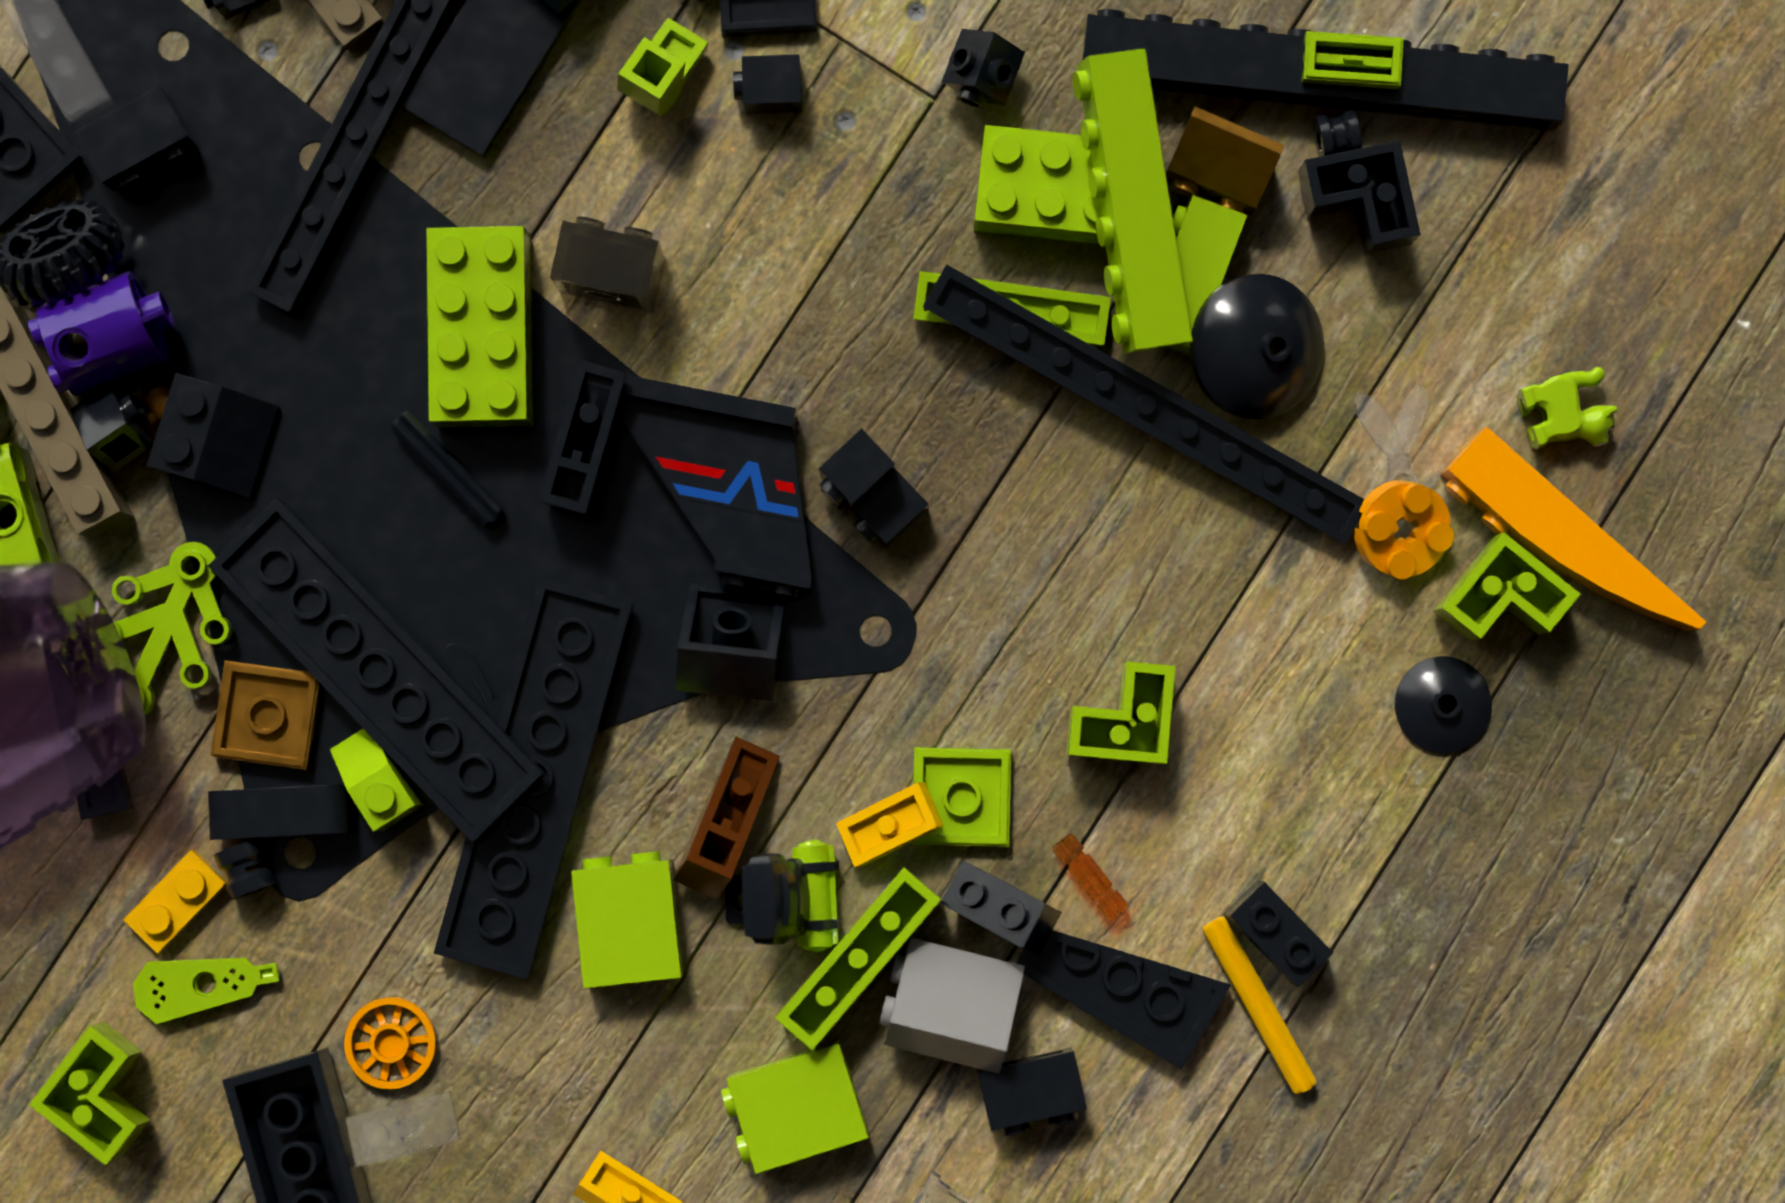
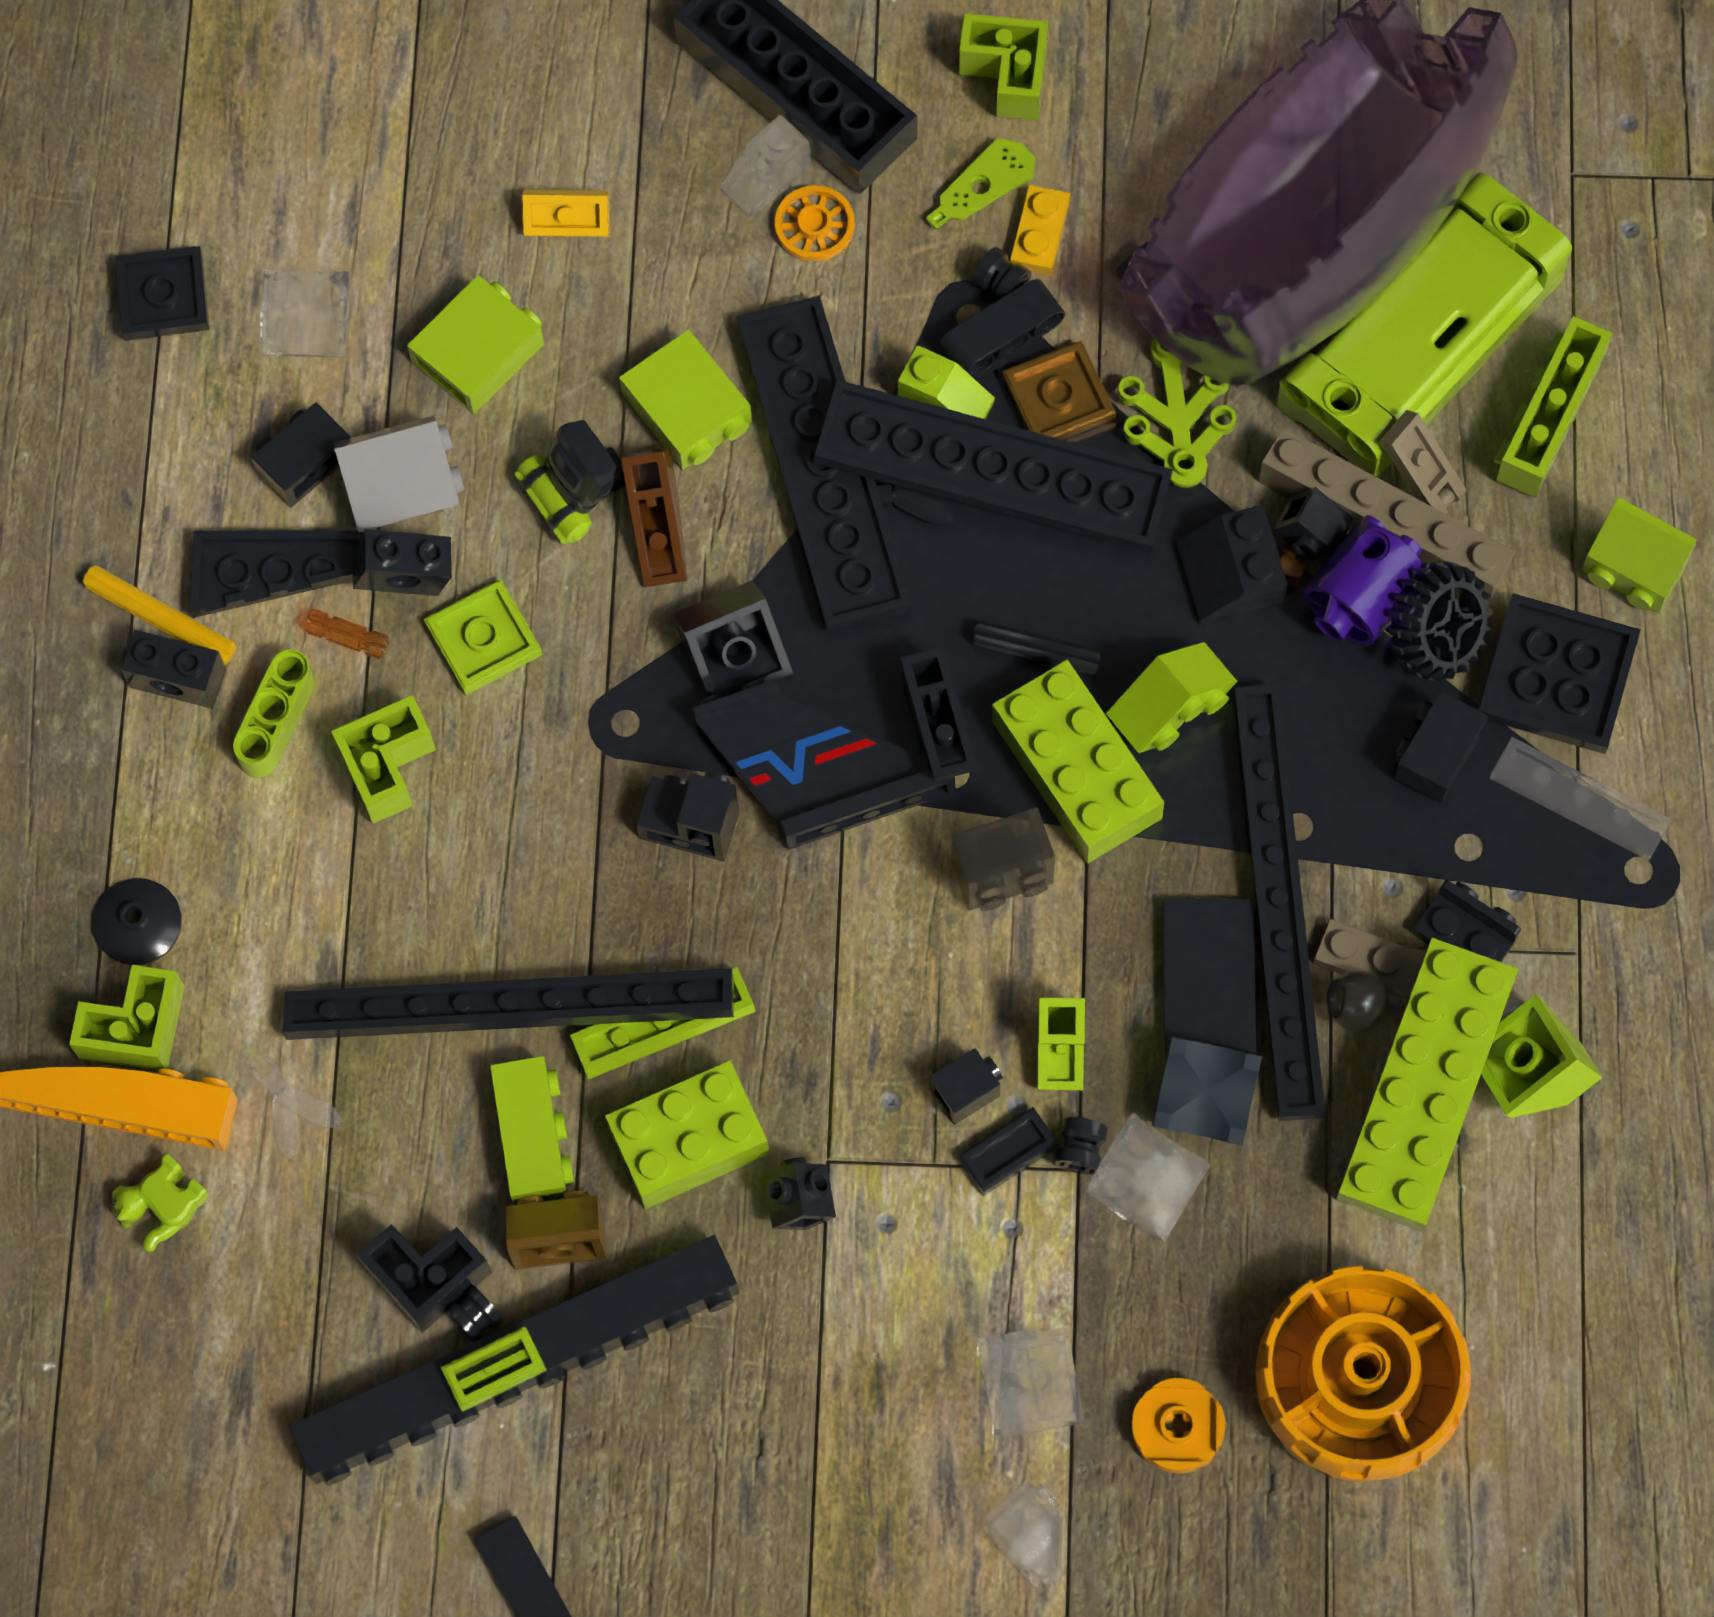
camera: 150 degrees right, 15 degrees down
(353, 332) = (1171, 693): none -> lime brick
(858, 958) = (490, 468): lime brick -> none
(889, 824) = (525, 578): yellow plate -> none
(1132, 201) = (606, 1136): lime brick -> none
(1229, 826) = (274, 693): none -> lime beam
(1233, 346) = (463, 1108): black dish -> none
(1427, 538) = (225, 1016): light orange plate -> none

